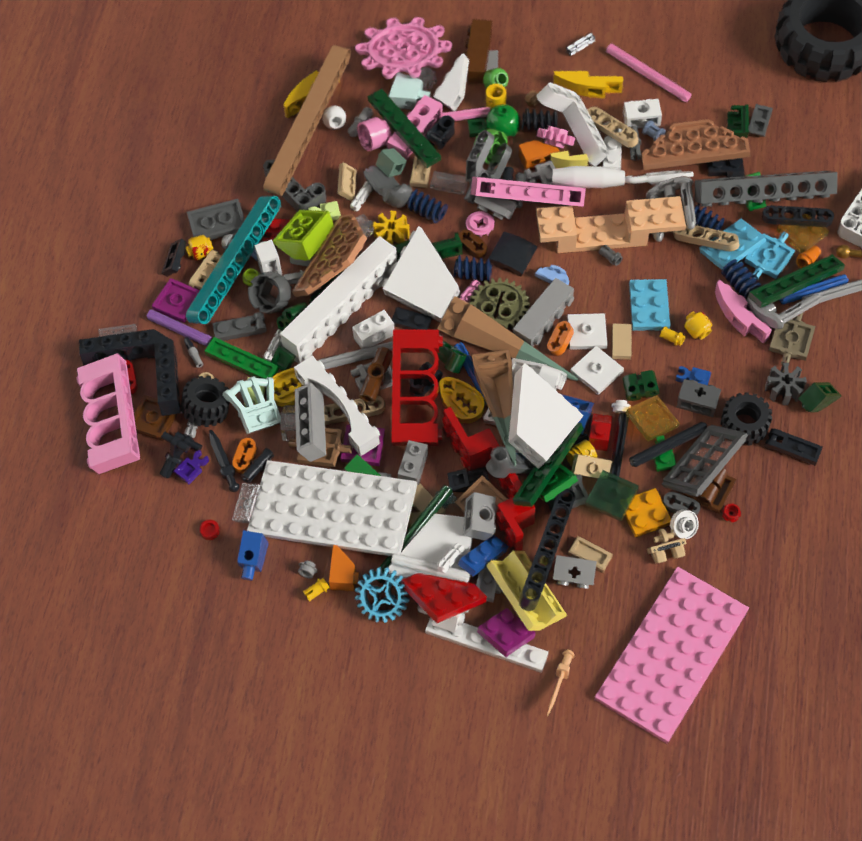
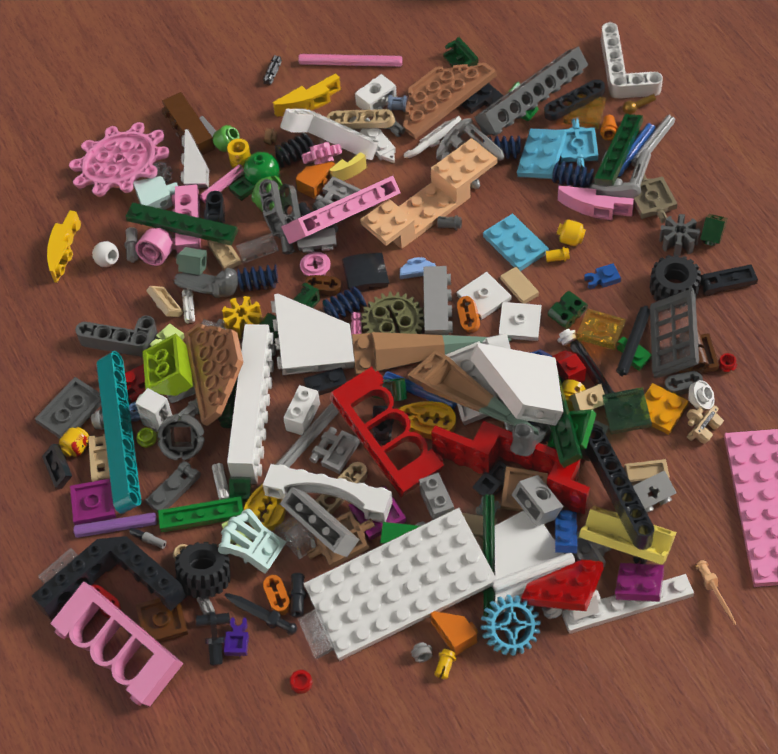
camera: 35 degrees left, 5 degrees down
(253, 546) = (360, 665): blue torso -> none
(289, 315) = (219, 444): dark green piece -> none
(307, 120) = (87, 270): medium nougat beam -> none
(373, 383) = (343, 453): reddish brown piece -> none
(450, 557) = (544, 551): white axle -> none
(588, 177) = (381, 168): white plate -> none
(704, 404) = (622, 289): dark grey brick -> none
(726, 241) = (517, 162): tan beam -> none
(760, 120) = (476, 44): dark grey slope -> none

